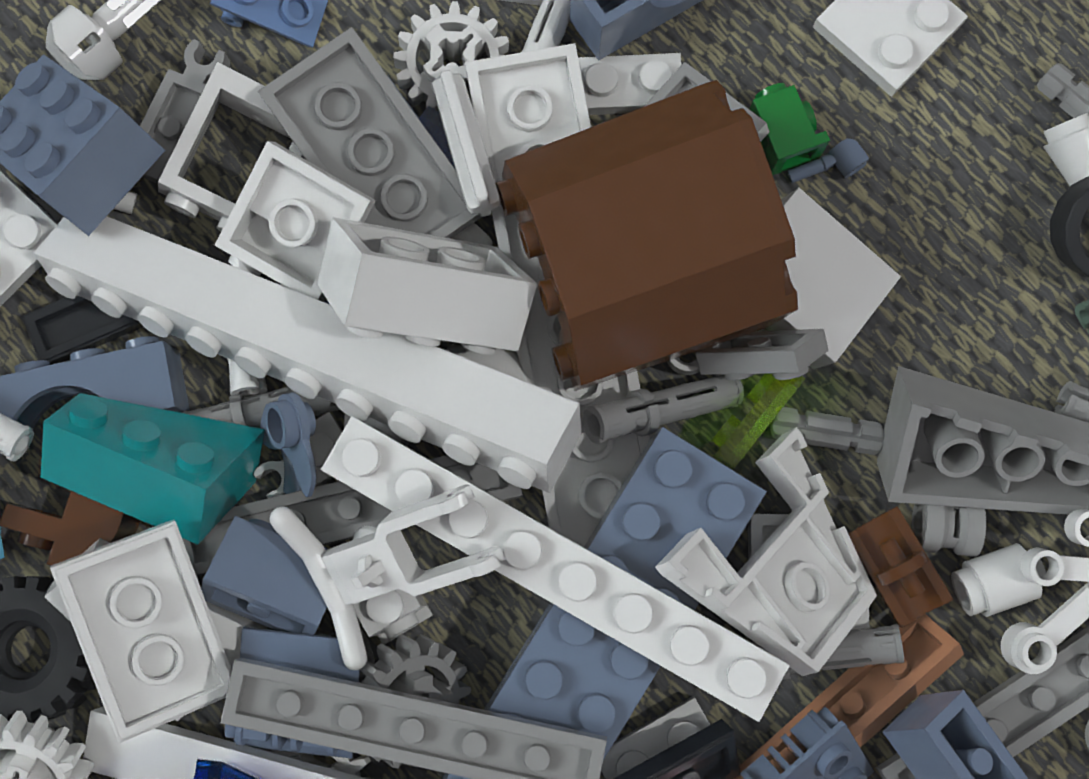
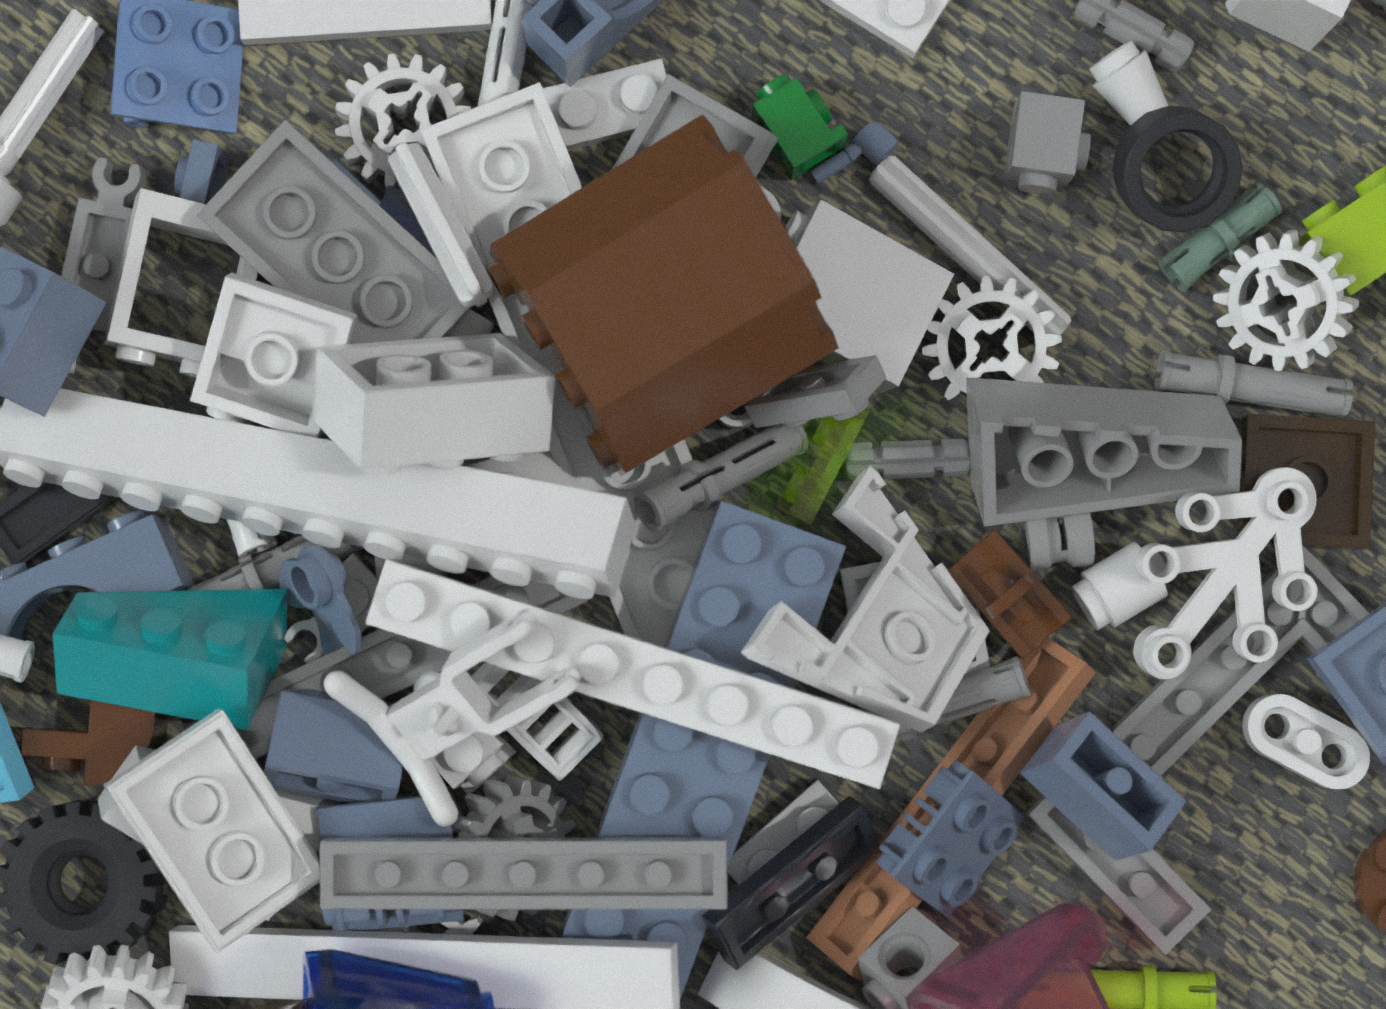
camera: 15 degrees left, 5 degrees up
(275, 61) = (202, 172): none -> sand blue plate
(482, 623) = (571, 750): none -> white slope
(903, 323) = (969, 325): none -> white gear
(914, 263) = (957, 236): none -> white axle
(997, 183) = (1046, 142): none -> light grey brick

